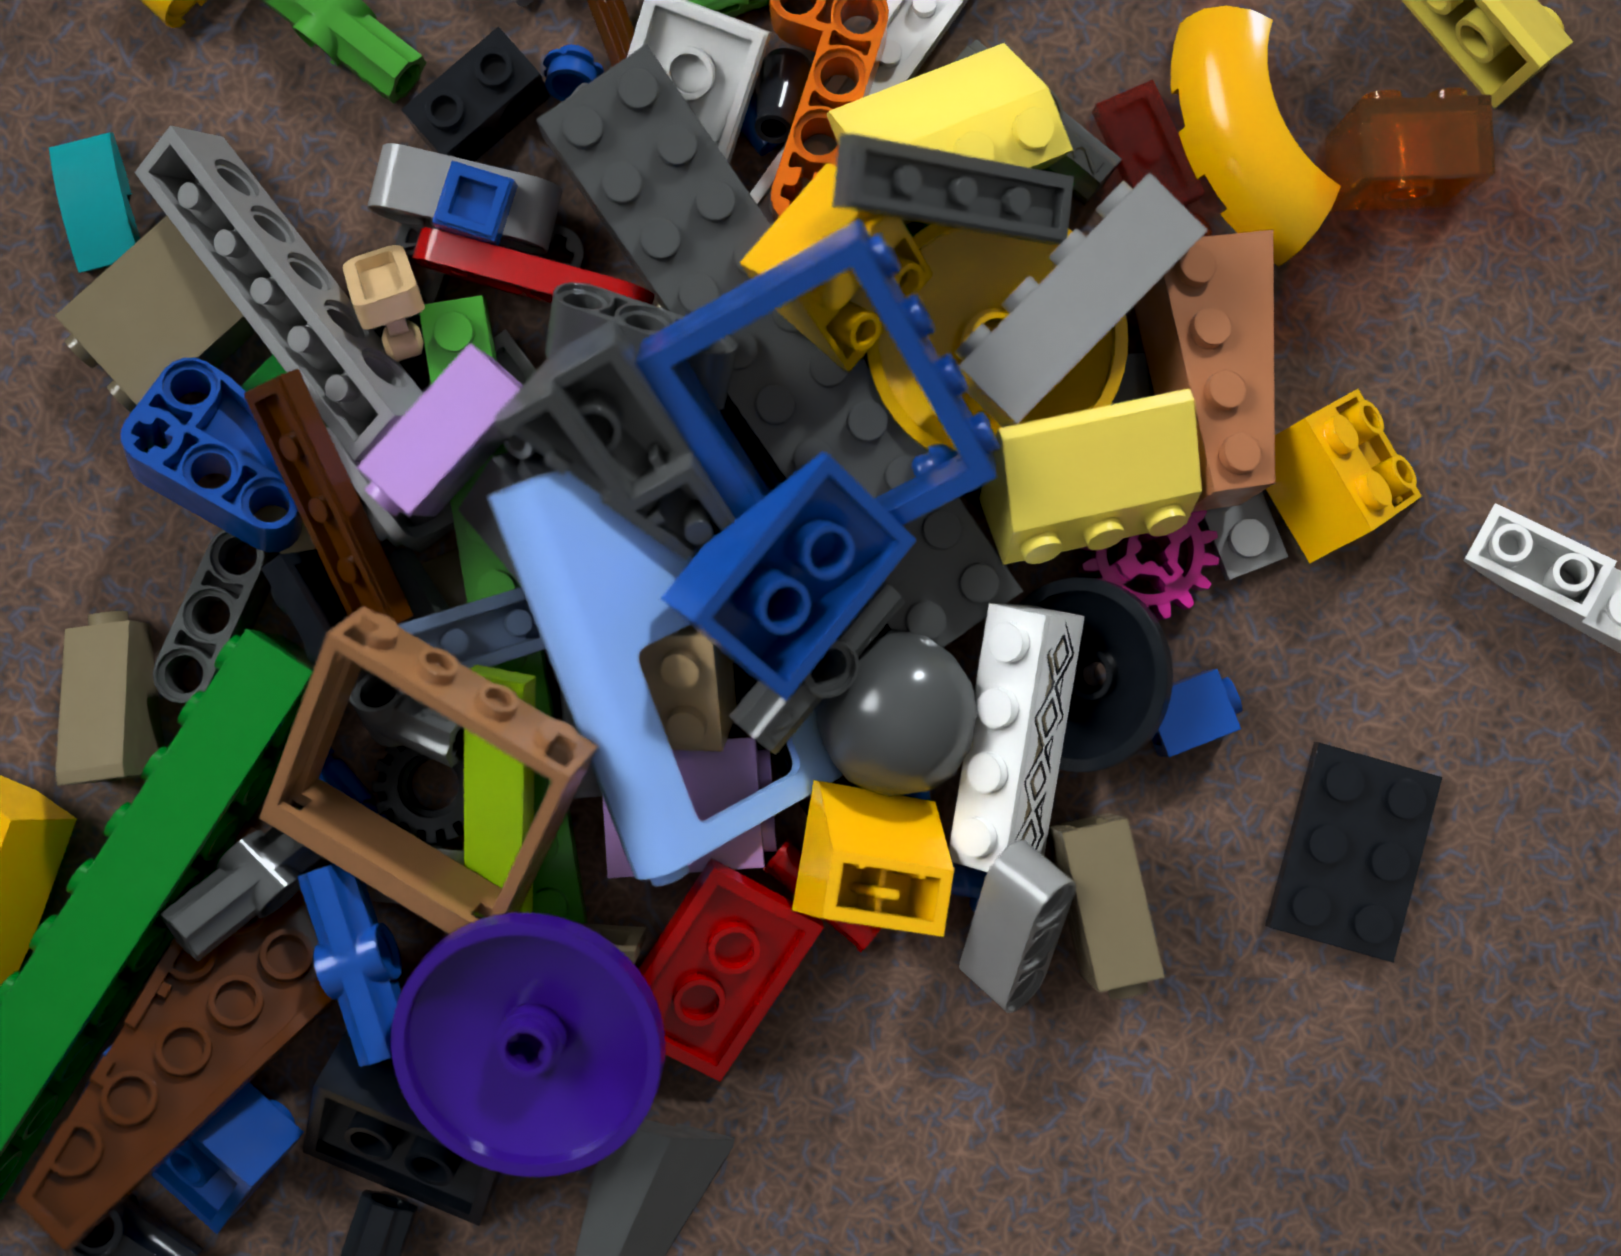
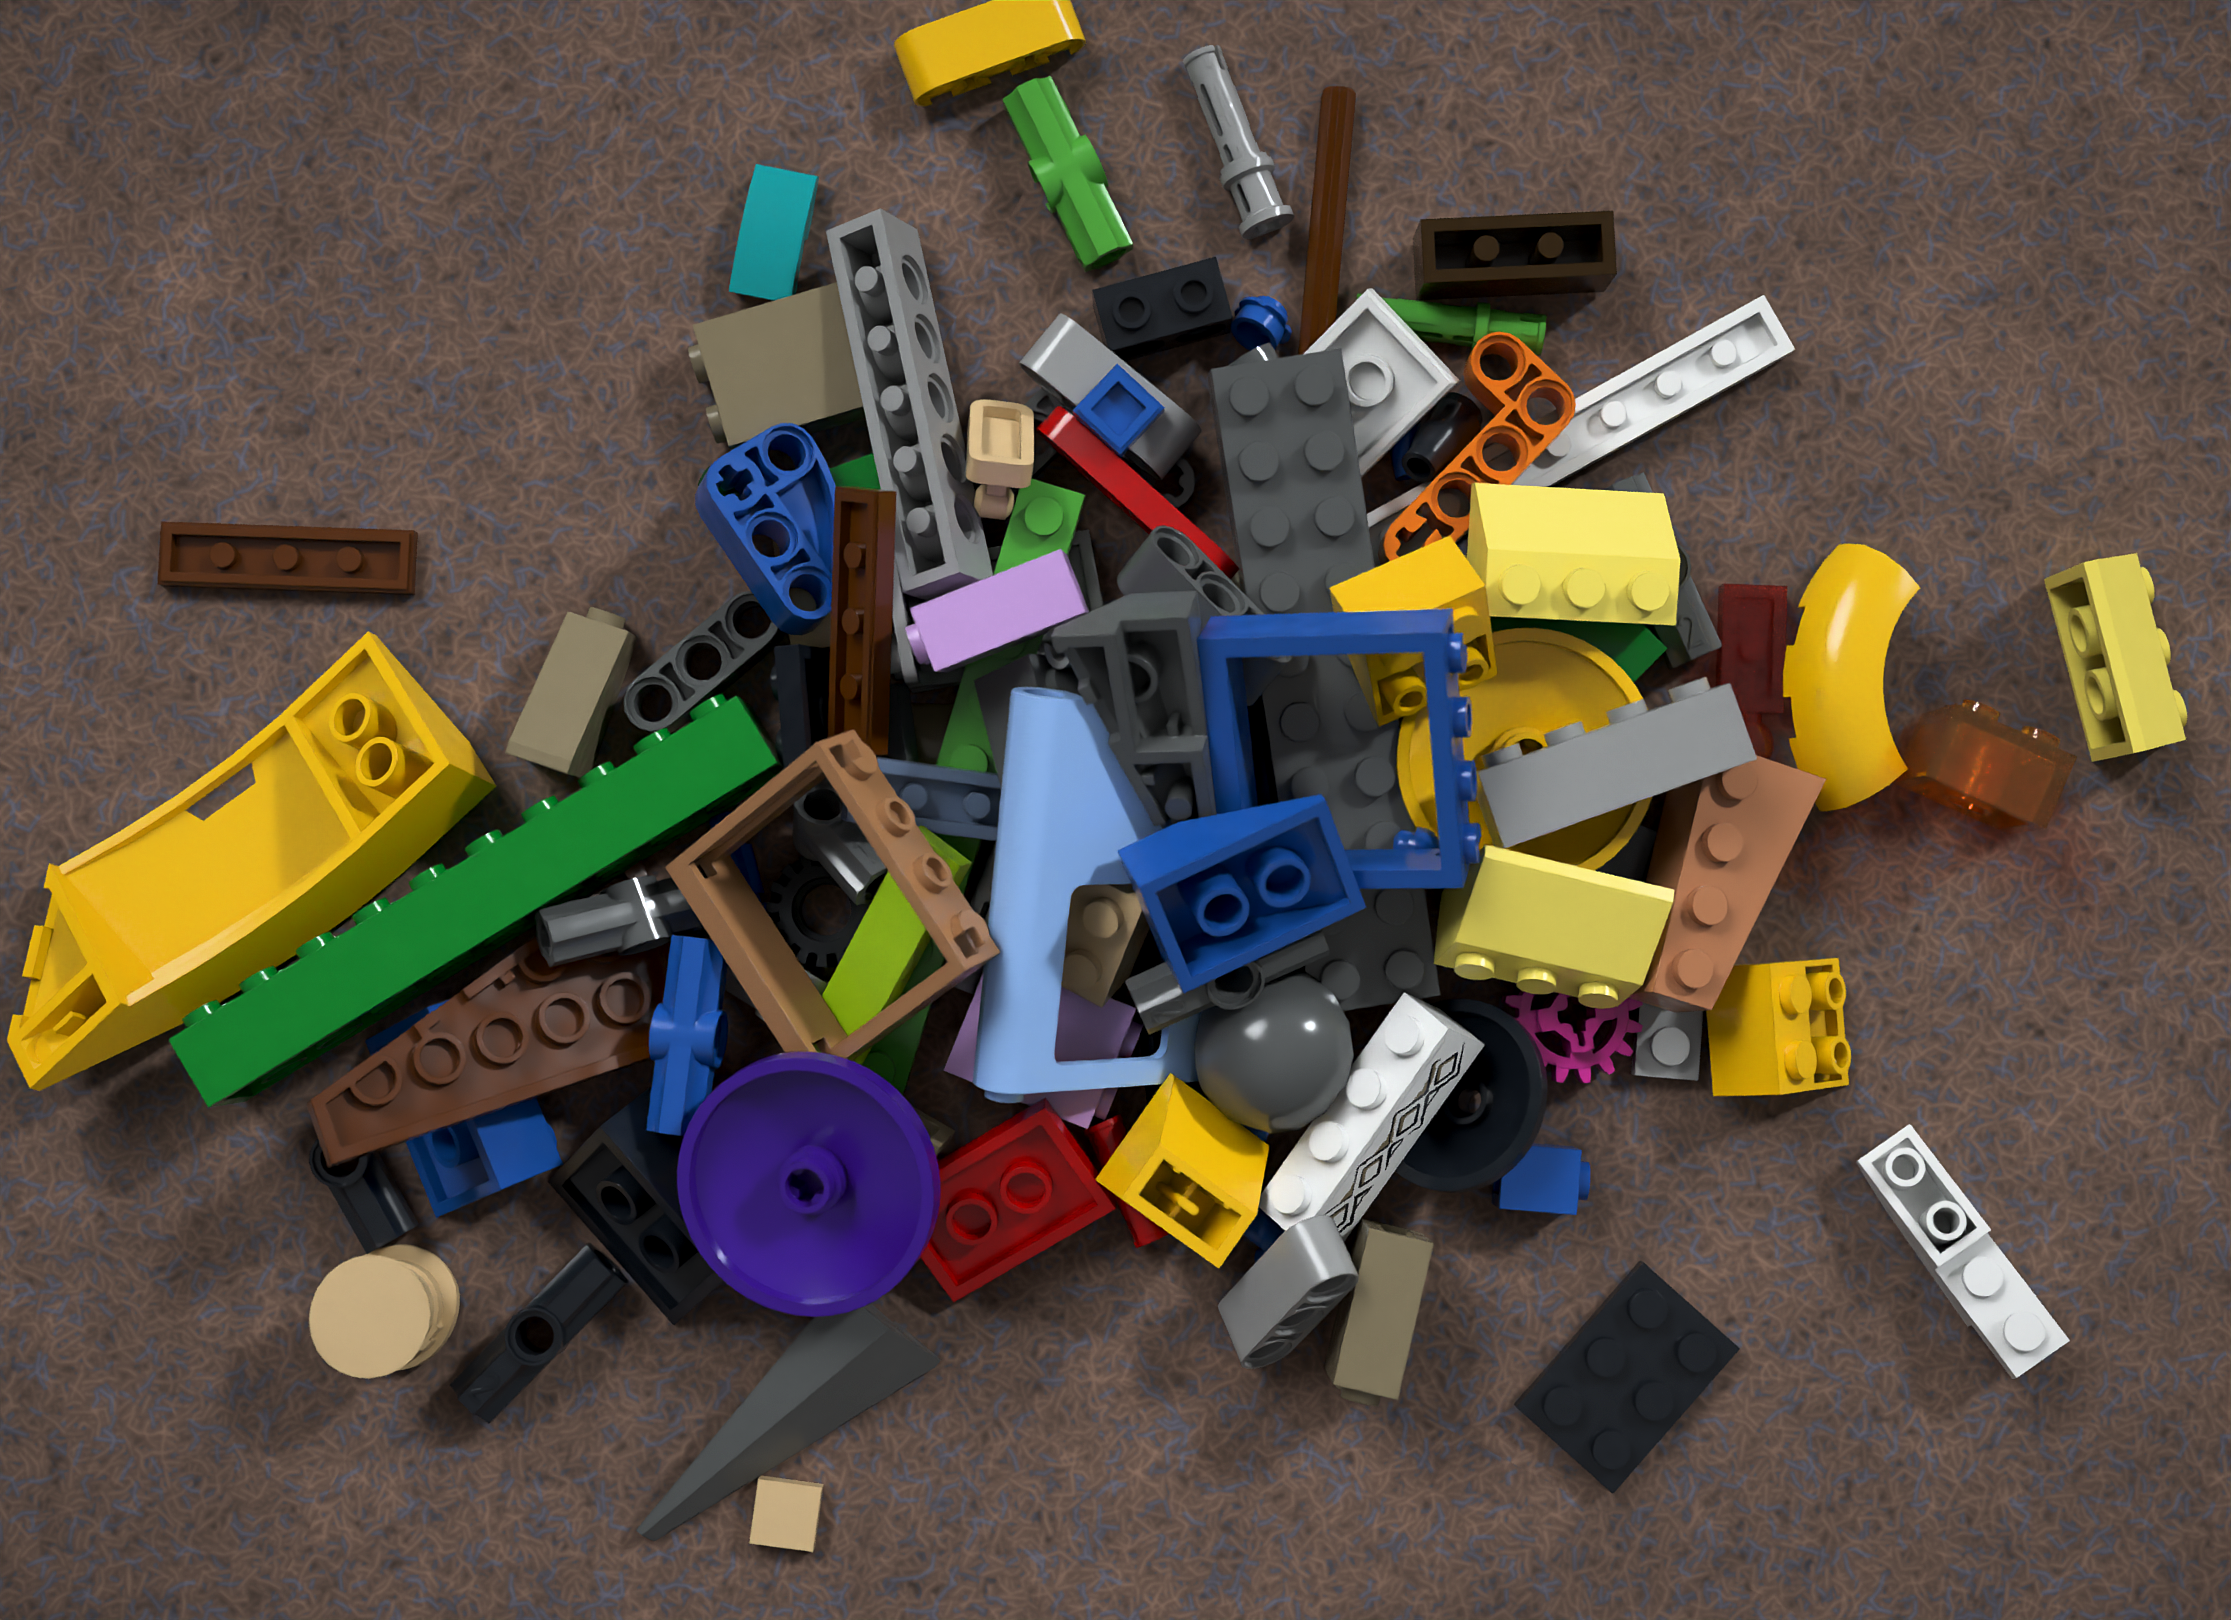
camera: 25 degrees right, 0 degrees up
(951, 189) = (1548, 616): dark grey tile -> none

